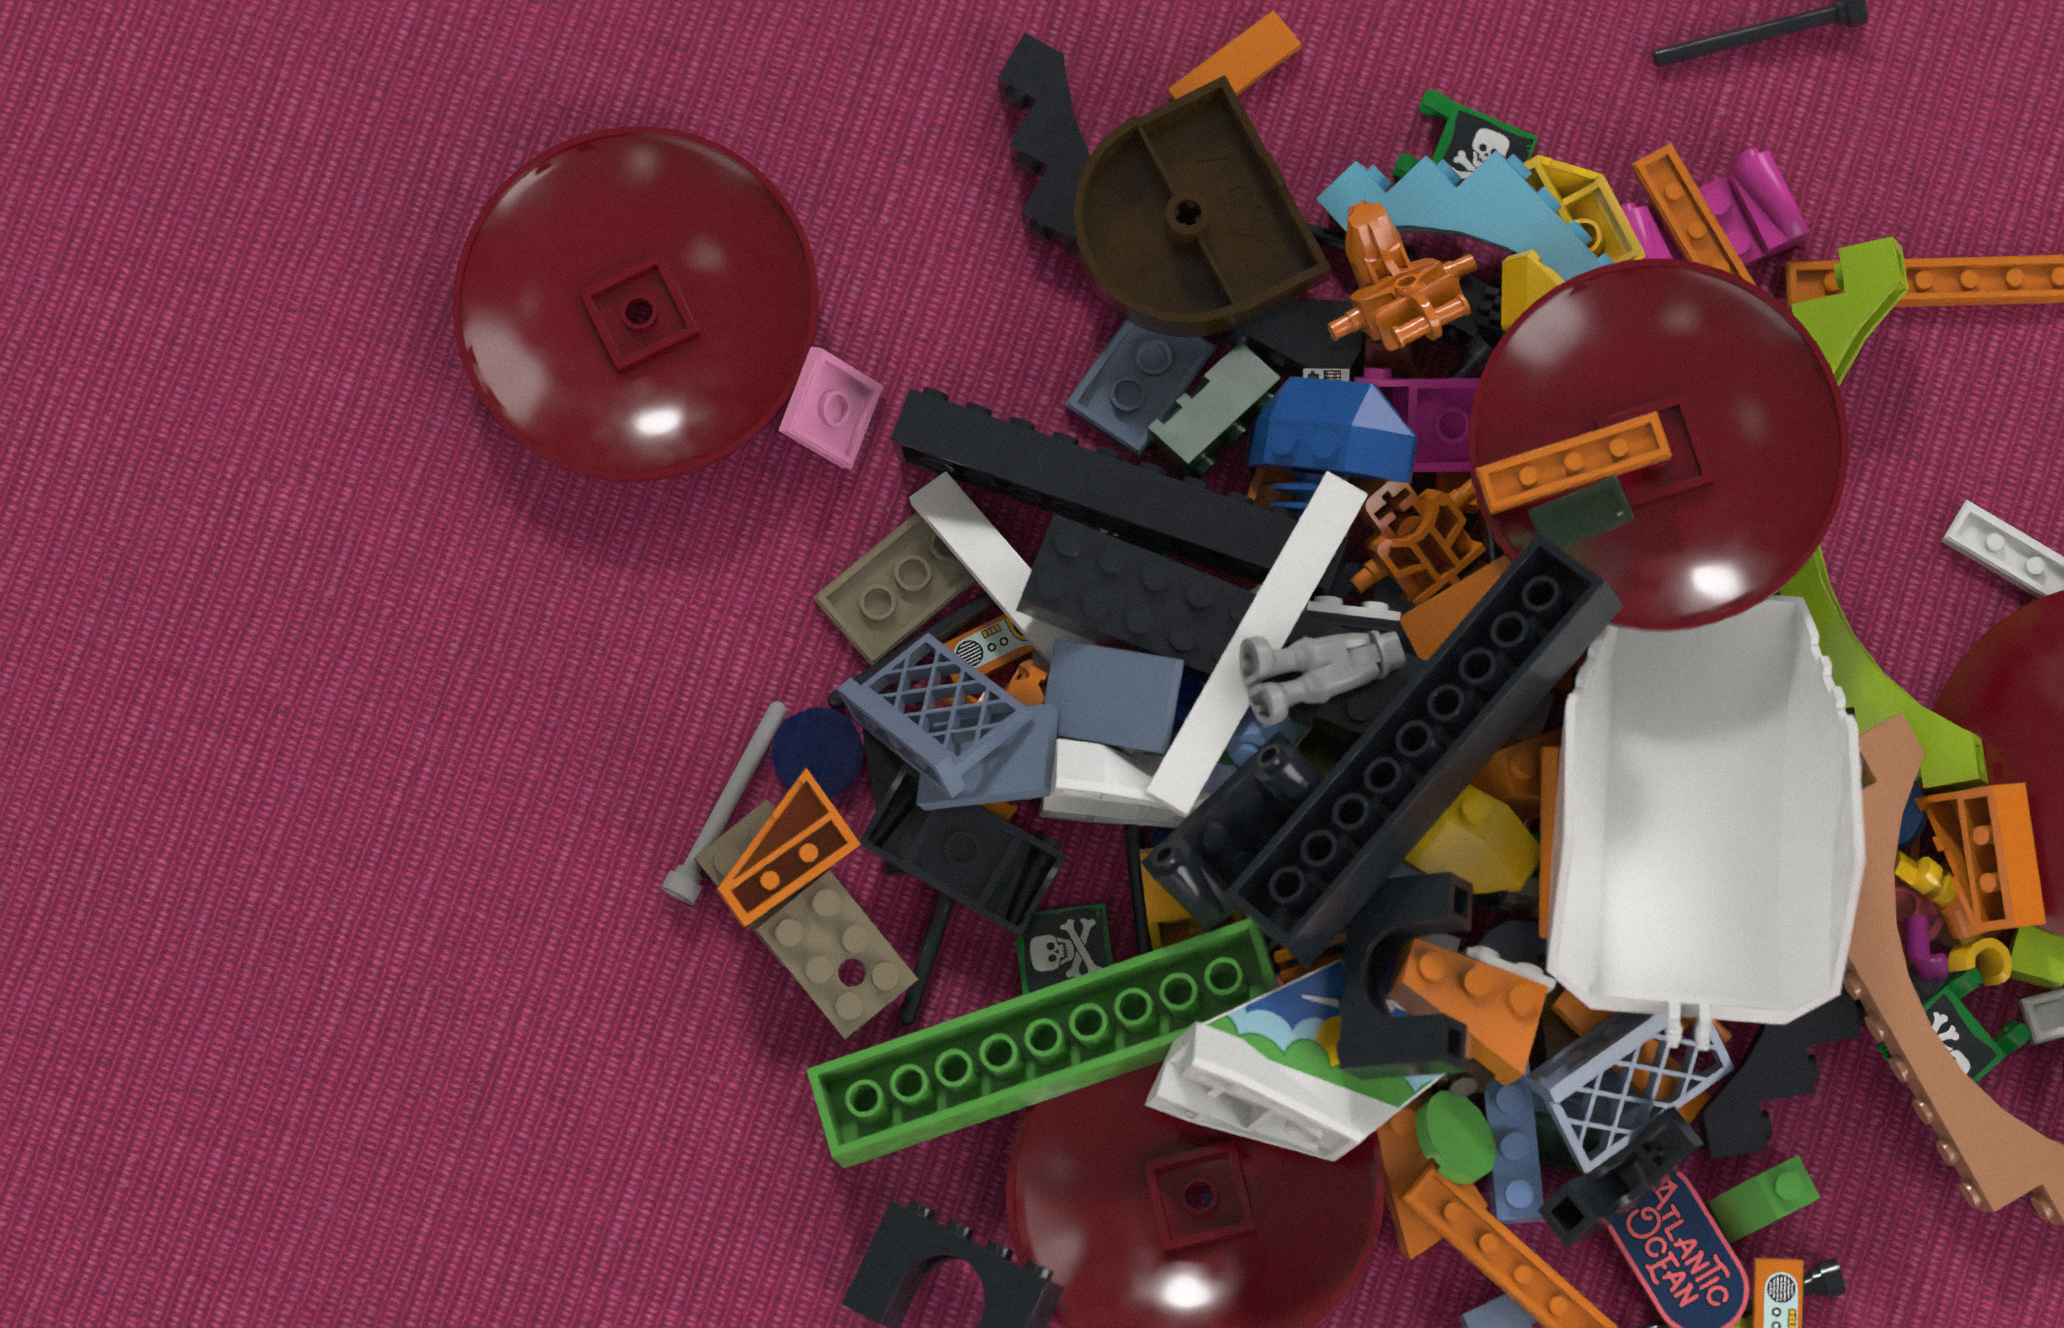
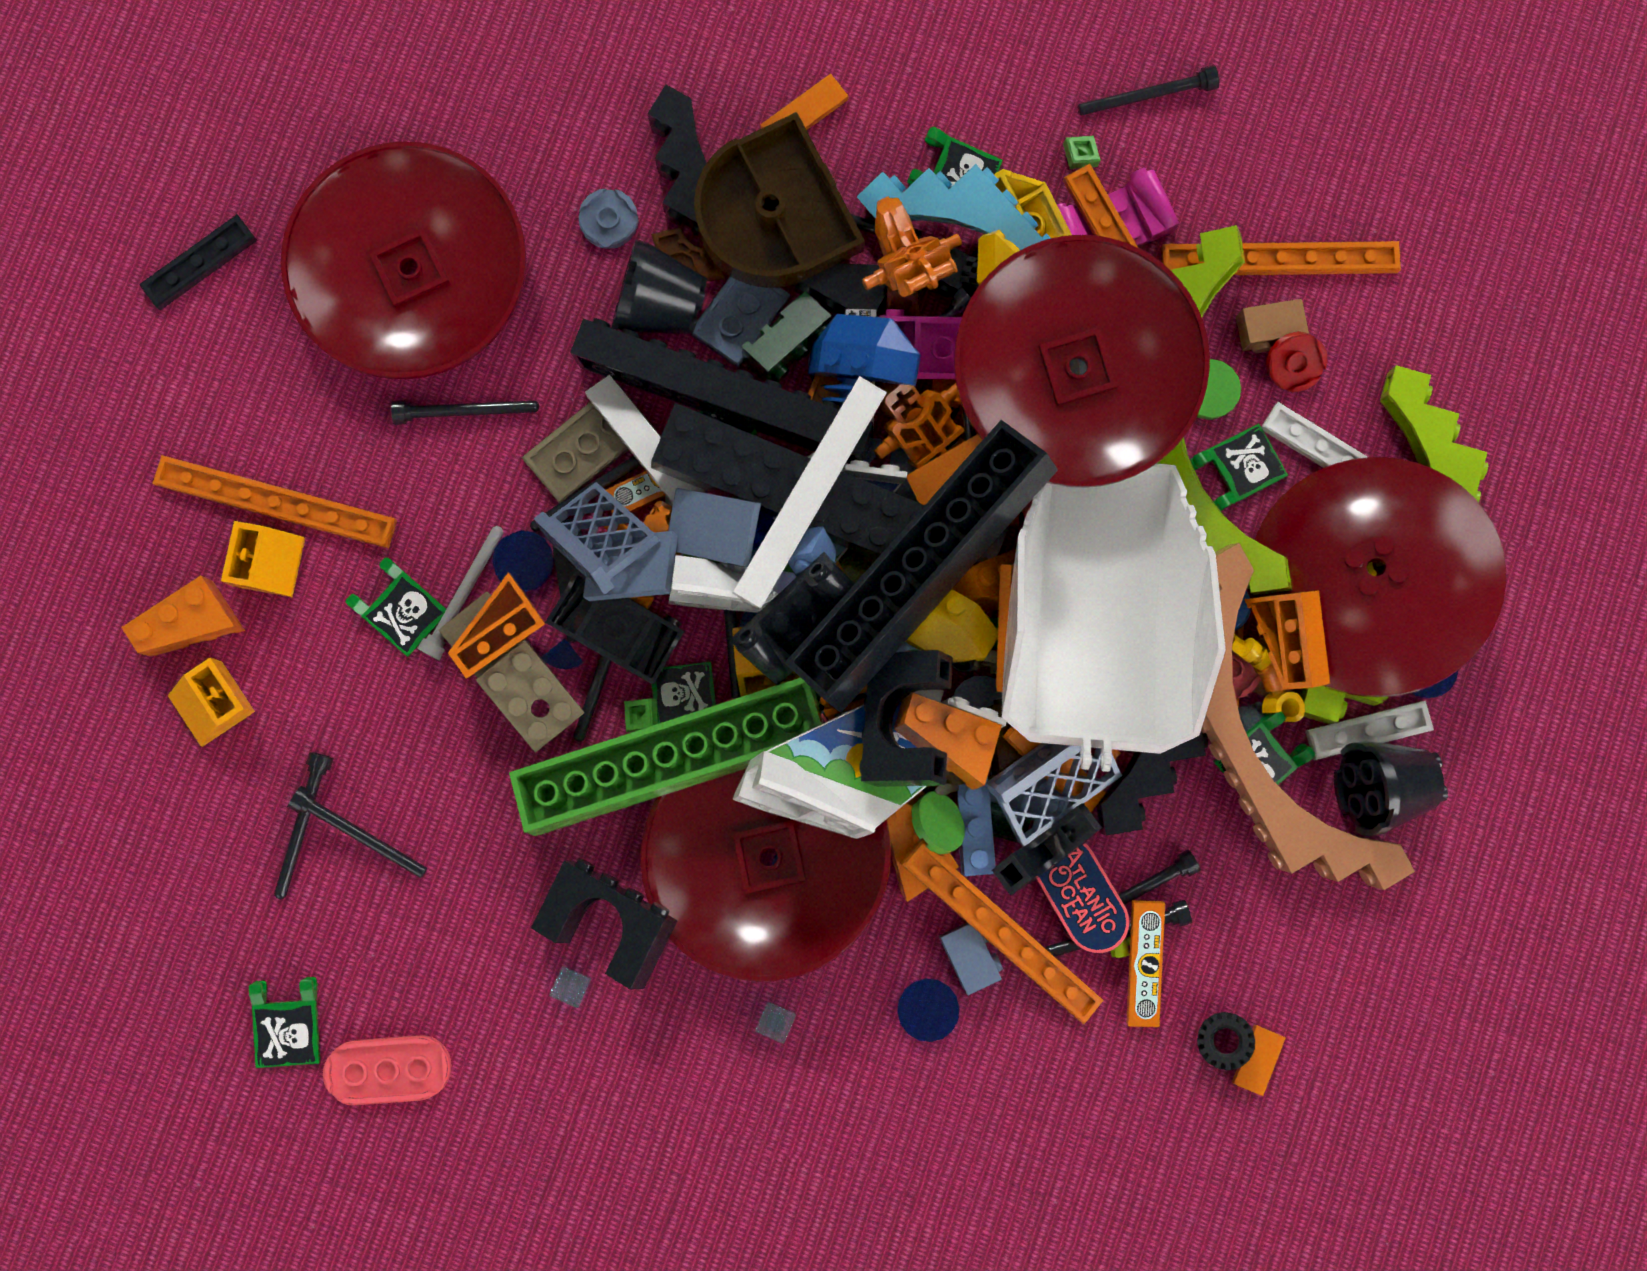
camera: 10 degrees left, 5 degrees up
(309, 846) = (183, 619): none -> orange wedge
(319, 308) = (198, 262): none -> black tile
(349, 969) = (209, 700): none -> light orange slope
(428, 754) = (262, 559): none -> light orange slope
(441, 668) = (275, 501): none -> orange tile
(498, 1118) = (305, 802): none -> black piece
(513, 1066) = (317, 767): none -> black piece
(636, 530) = (404, 412): none -> black piece
(636, 832) = (402, 612): none -> flag
(831, 408) = (533, 331): bright pink tile -> none
(881, 897) = (563, 656): none -> clear blue tile
(938, 234) = (608, 218): none -> sand blue tile
(999, 981) = (640, 714): none -> bright green tile
(1018, 348) = (658, 293): none -> black cone
(1056, 290) = (695, 257): none -> reddish brown tile
(1327, 664) = (857, 507): light grey piece -> none
(1573, 463) = (1024, 372): orange tile -> none
(1582, 514) = (1030, 407): clear green tile -> none
(1659, 123) = (1081, 151): none -> bright green tile
(1763, 1199) = (1139, 861): bright green slope -> none
(1832, 1206) = (1183, 865): none -> black piece
(1874, 483) = (1222, 391): none -> bright green tile
(1917, 595) = (1244, 463): none -> flag
(1918, 949) = (1243, 698): magenta arm -> none
(1955, 384) = (1265, 324): none -> medium nougat brick
(1993, 438) = (1296, 361): none -> red tile

